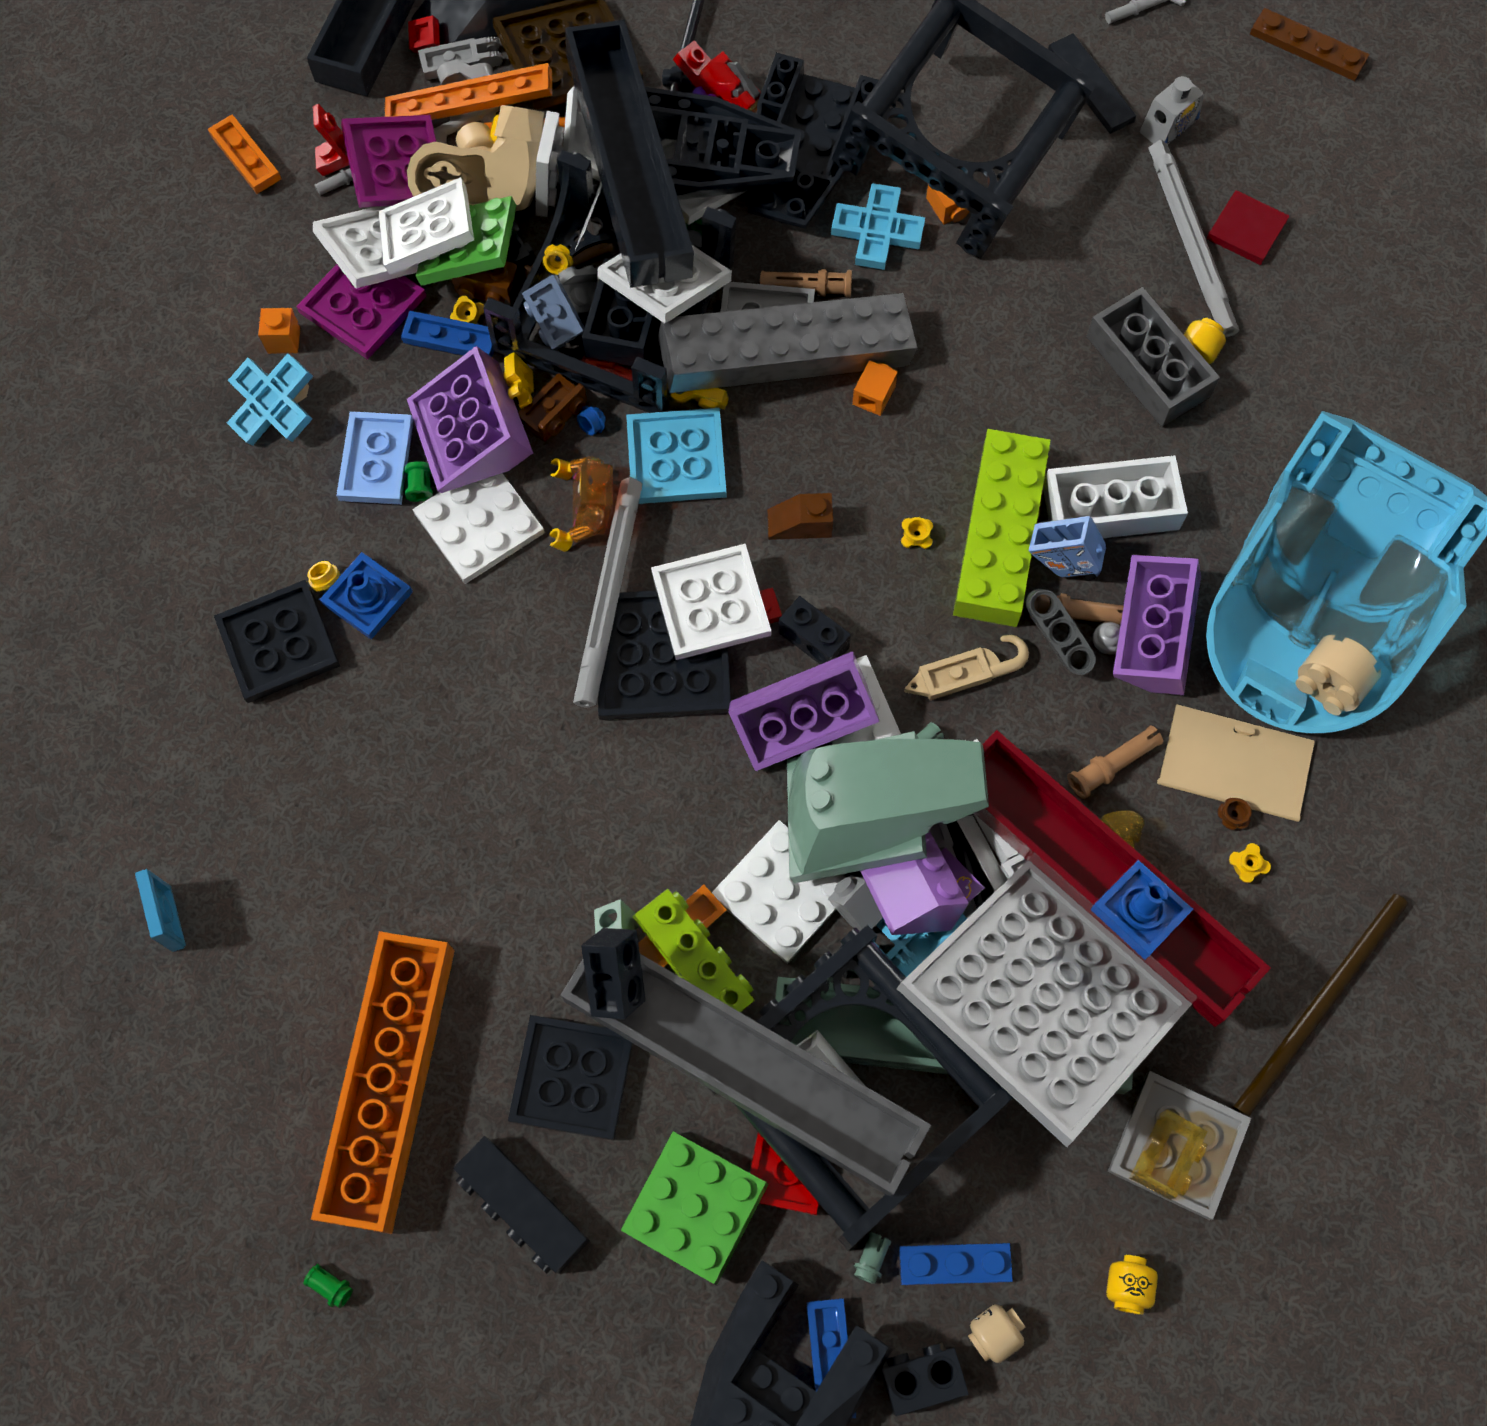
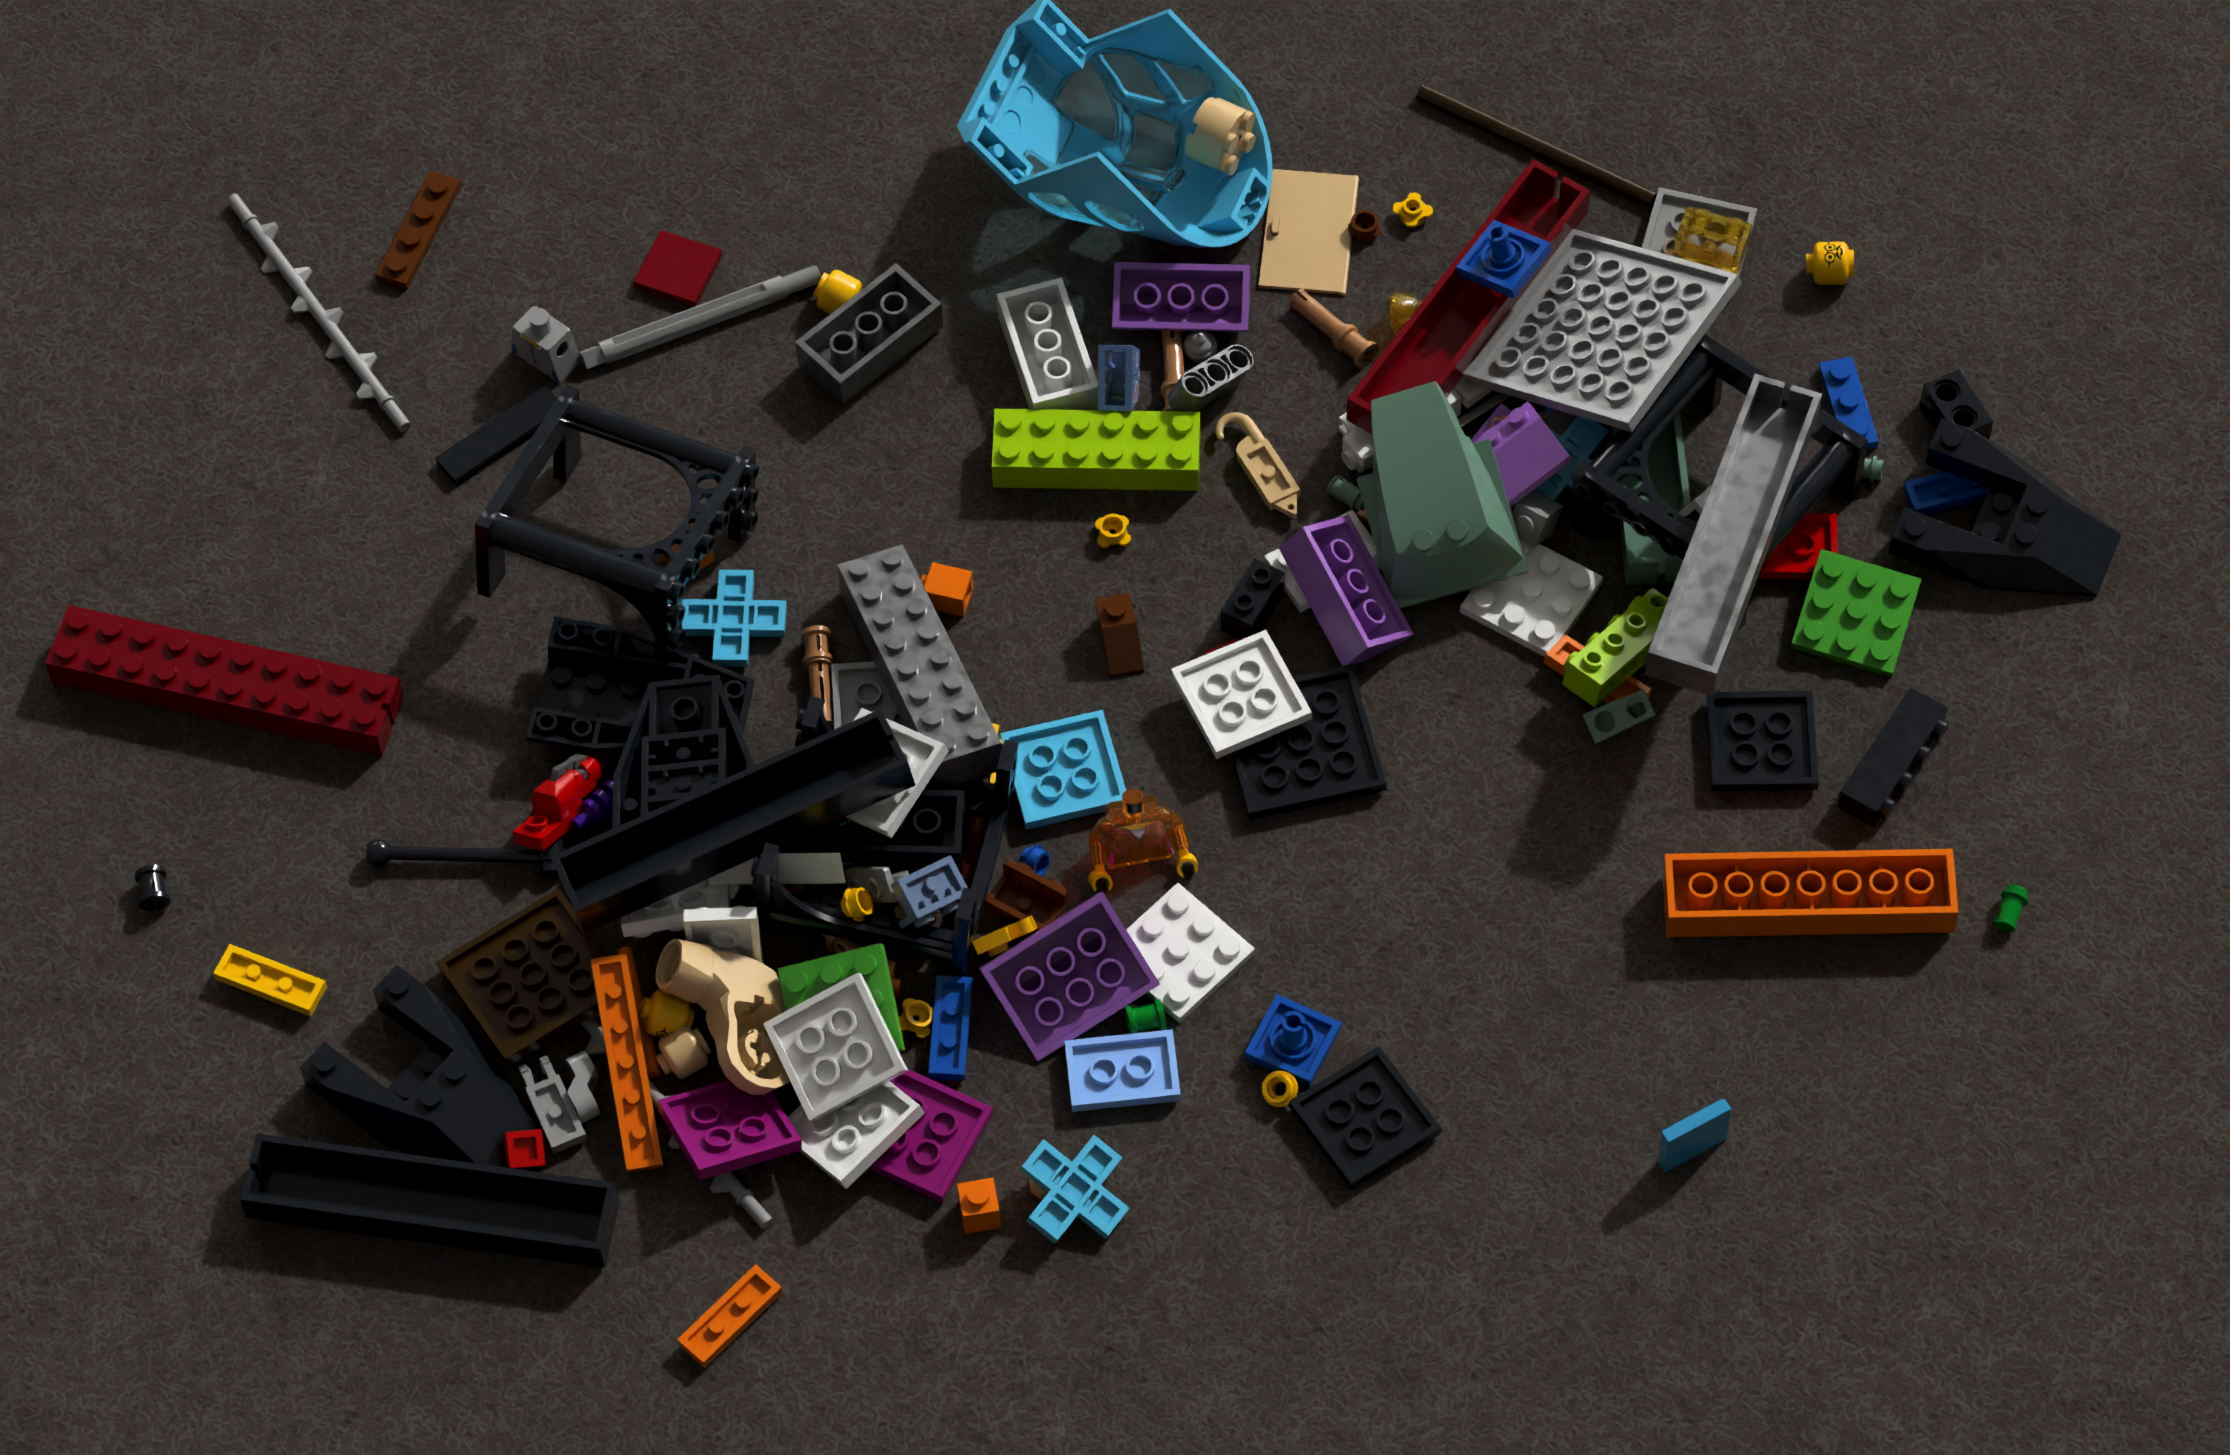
camera: 100 degrees left, 10 degrees down
(333, 153) = (716, 1206): red bracket -> none
(607, 593) = (1258, 792): light grey piece -> none
(613, 973) = (1689, 623): black brick -> none
(997, 1333) = (1900, 361): tan head -> none

